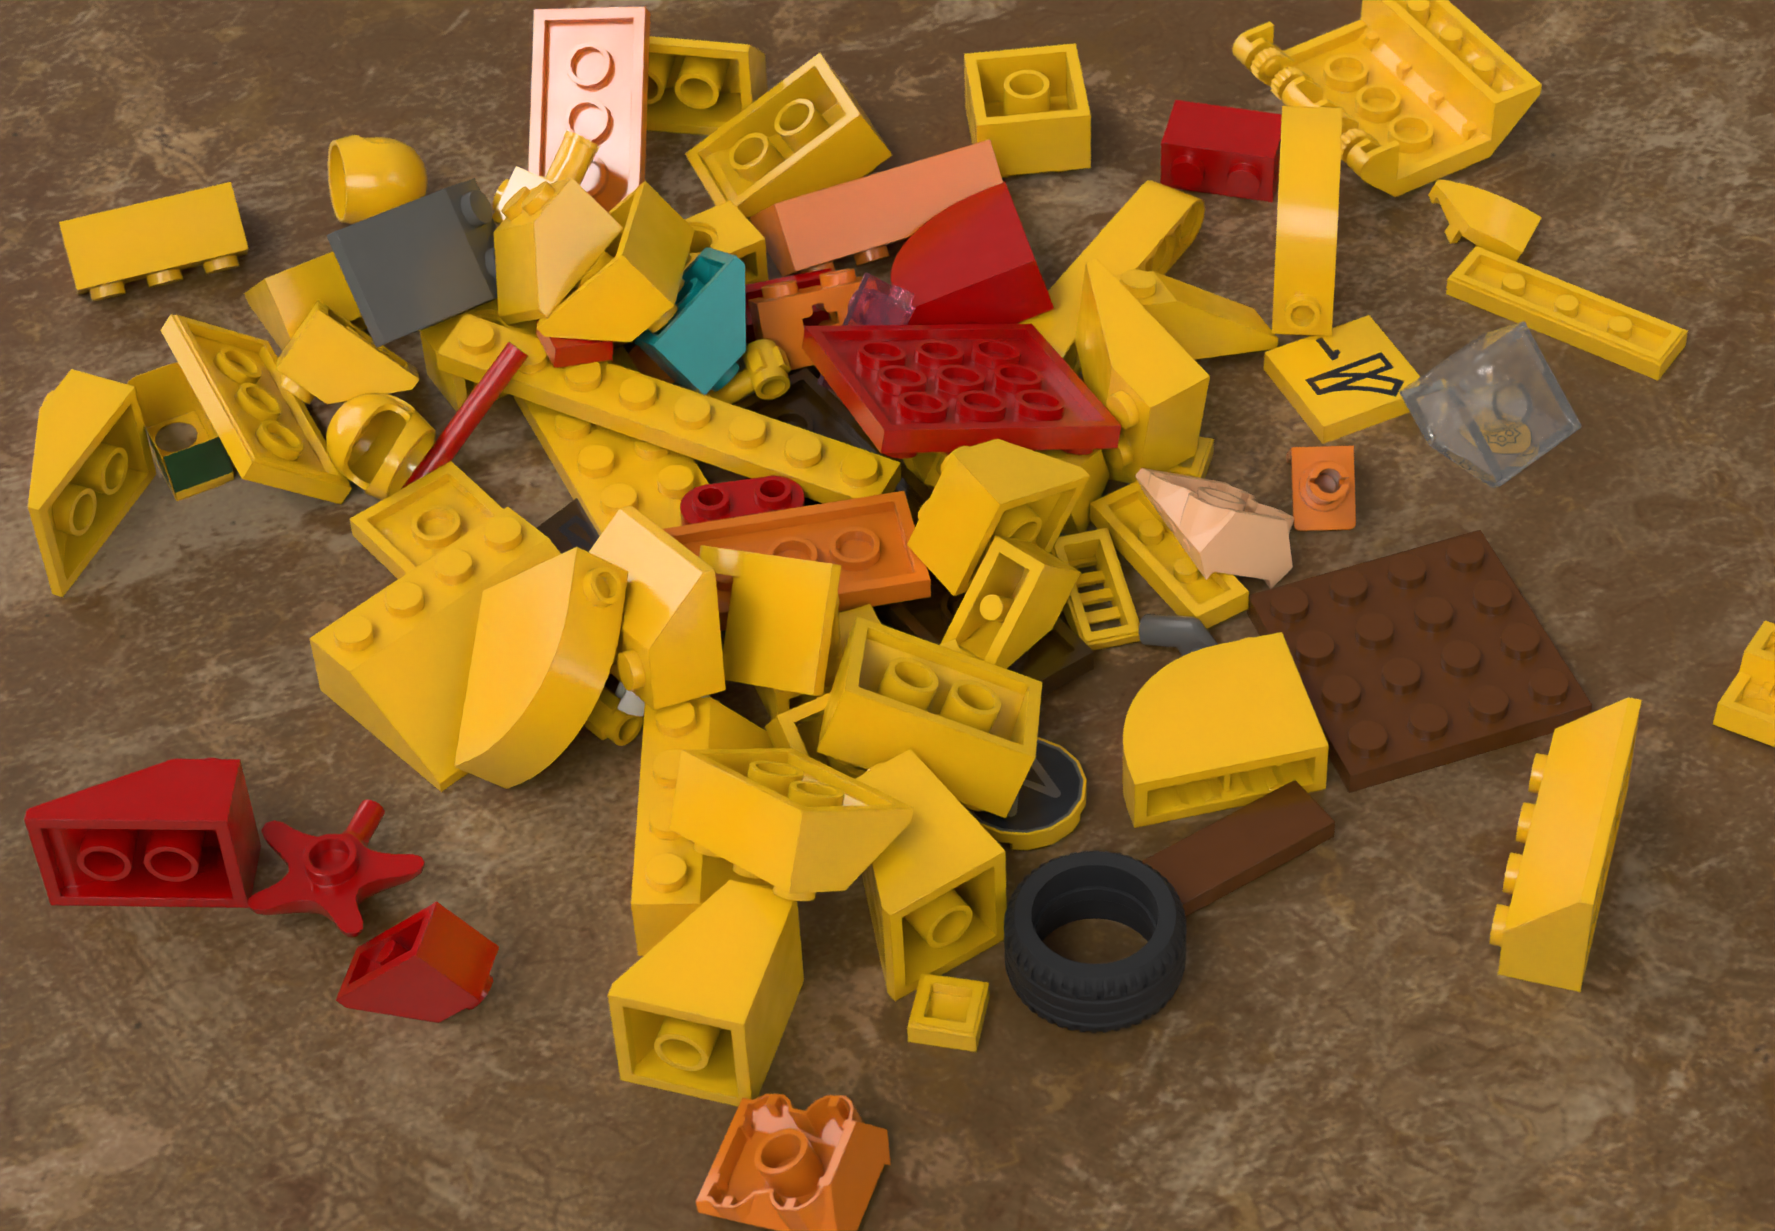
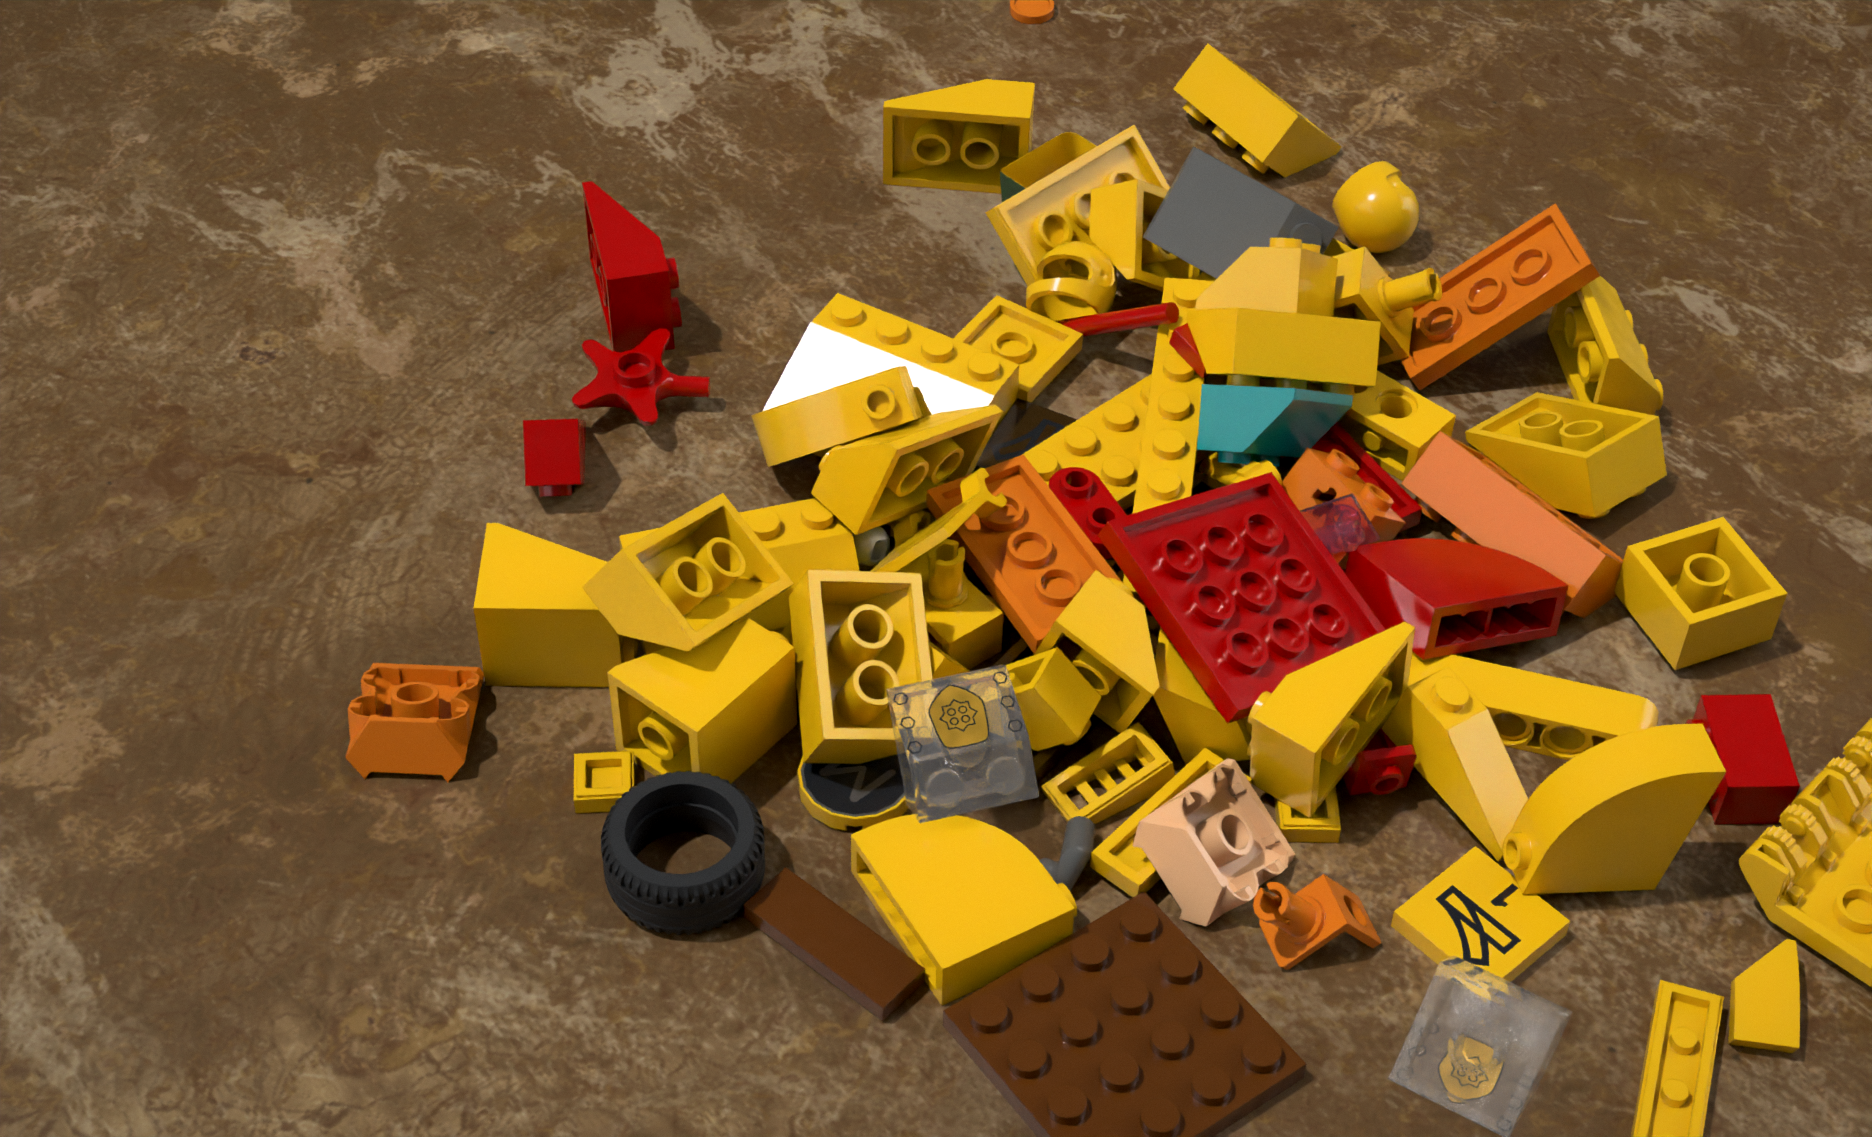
camera: 70 degrees right, 0 degrees up
(1079, 654) = (961, 744): none -> clear slope

